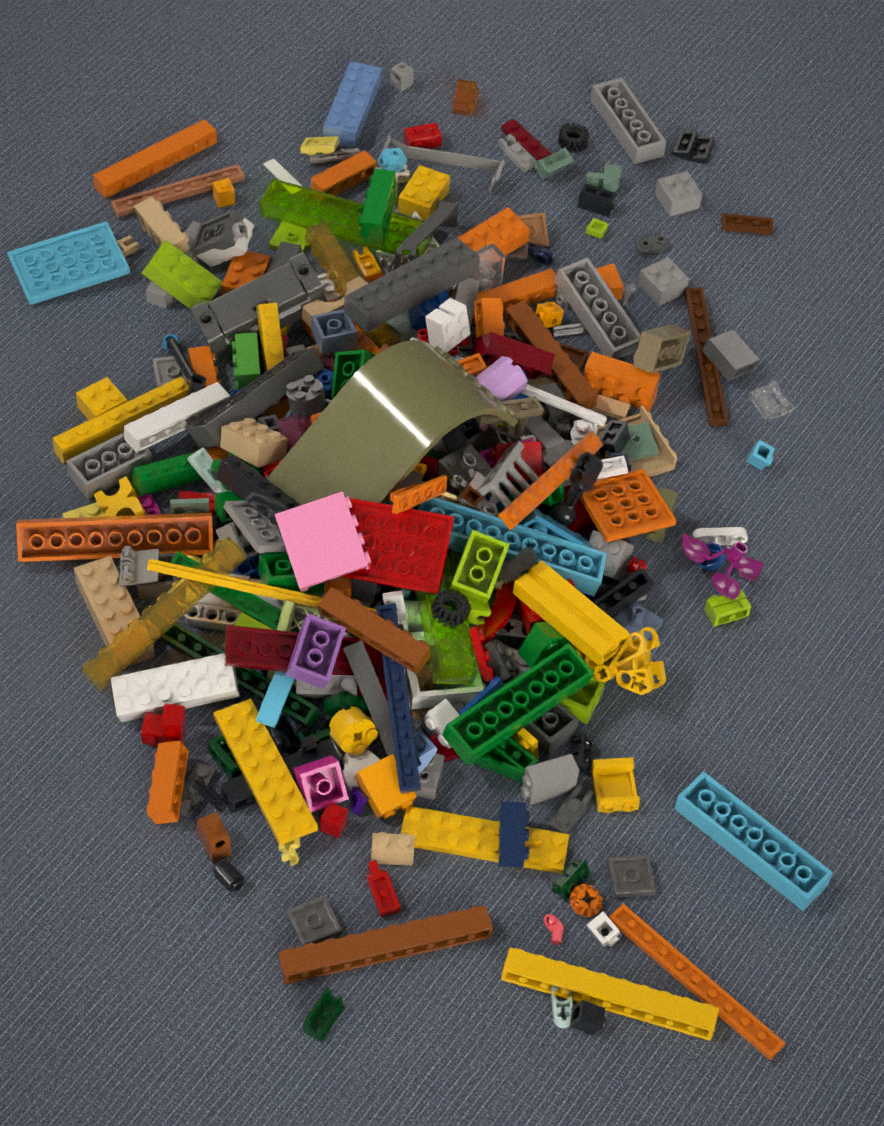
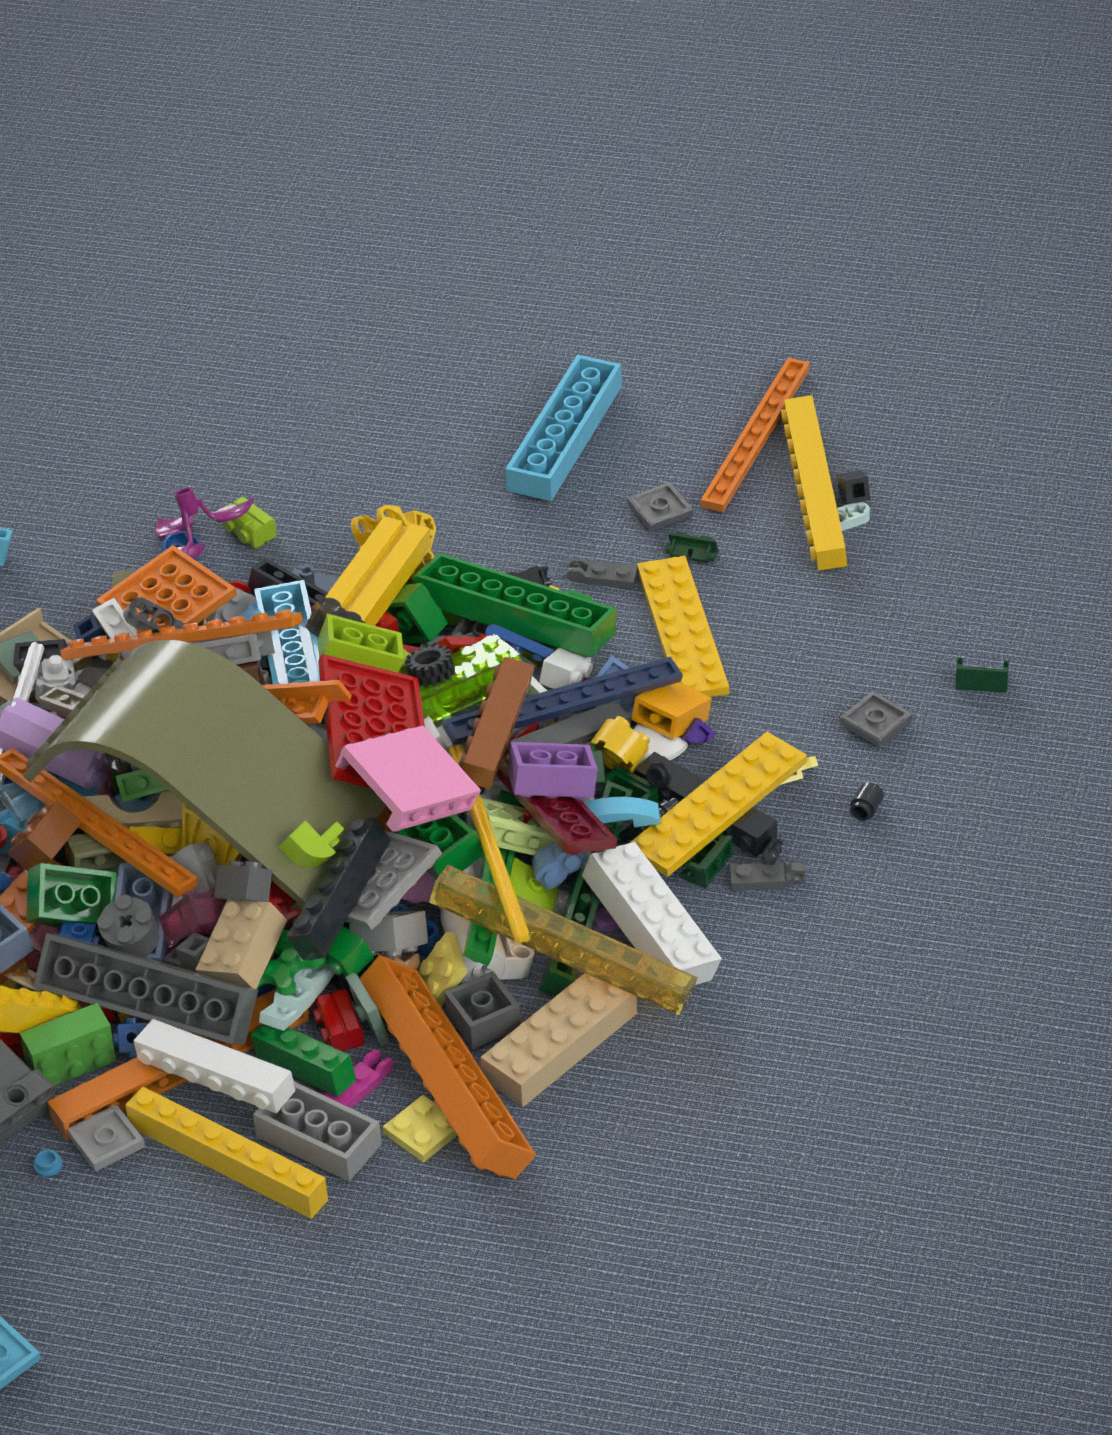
camera: 105 degrees left, 10 degrees down
(99, 398) = (206, 1185): yellow brick -> none
(123, 503) = (382, 1088): yellow piece -> none
(134, 566) = (493, 1008): light grey hinge -> none
(164, 727) = (704, 904): red brick -> none
(167, 782) = (780, 888): orange brick -> none
(196, 381) = (142, 1073): black piece -> none
(210, 831) = (825, 825): dark orange torso -> none
(282, 441) = (243, 882): none -> dark grey brick
(293, 478) = (308, 848): none -> lime brick
(321, 783) = (699, 751): dark pink brick -> none
(334, 820) = (737, 737): red brick -> none
(382, 890) = (800, 680): red hinge -> none
(384, 944) = (869, 655): dark orange brick -> none
(393, 848) = (746, 683): tan brick -> none
(513, 834) = (674, 589): dark blue brick -> none
(550, 779) = (580, 573): light grey brick -> none
(555, 927) = (758, 544): coral arm -> none
(581, 907) = (713, 528): orange gear -> none
(603, 922) = (740, 506): white brick -> none
(614, 785) = (552, 547): yellow panel -> none
(729, 535) = (136, 548): white beam -> none

